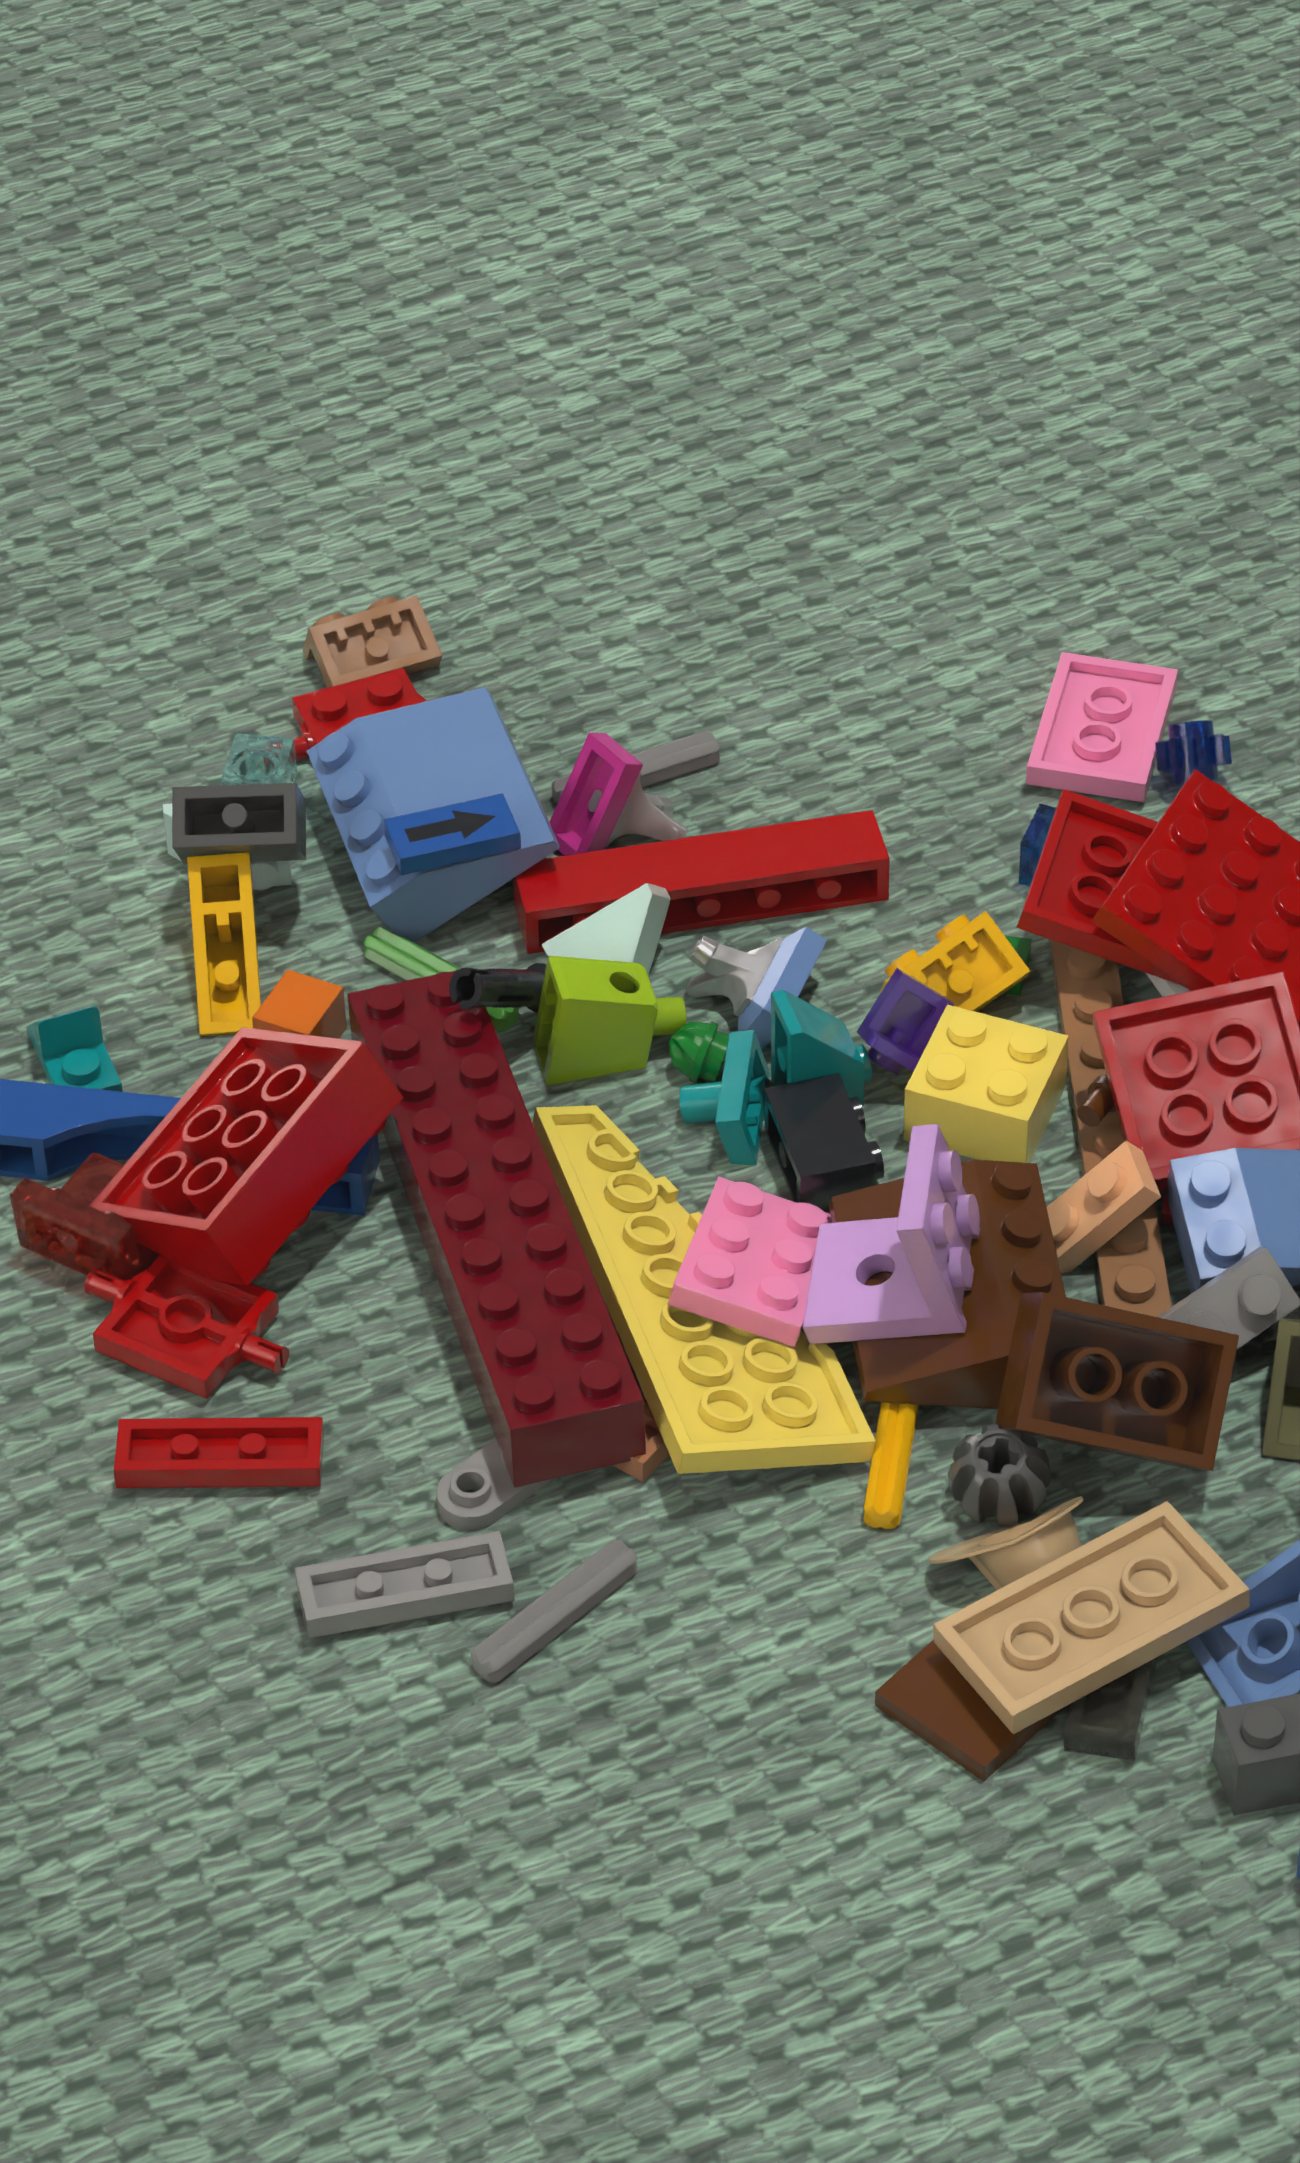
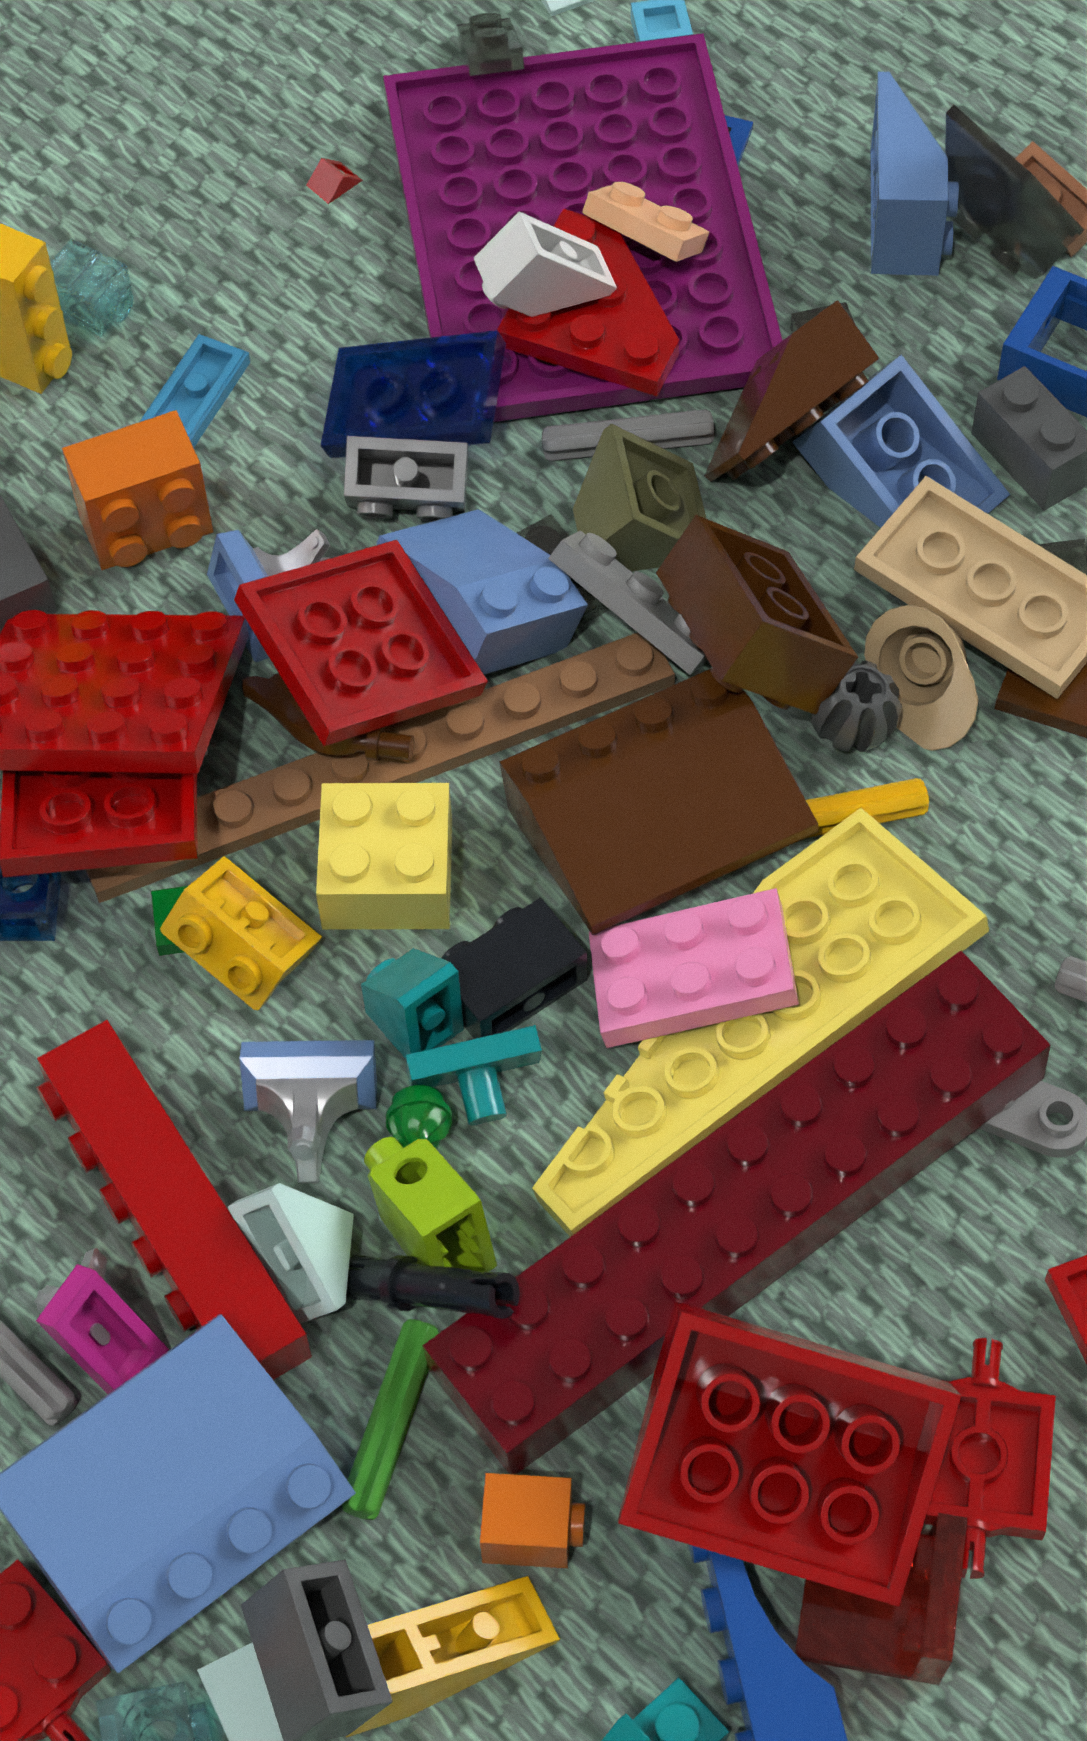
camera: 110 degrees left, 15 degrees up
(452, 834) = (261, 1410): blue tile -> none
(902, 1022) = (328, 942): dark purple bracket -> none
(922, 1247) = (695, 773): lavender bracket -> none
(1101, 1205) = (511, 703): light nougat plate -> none

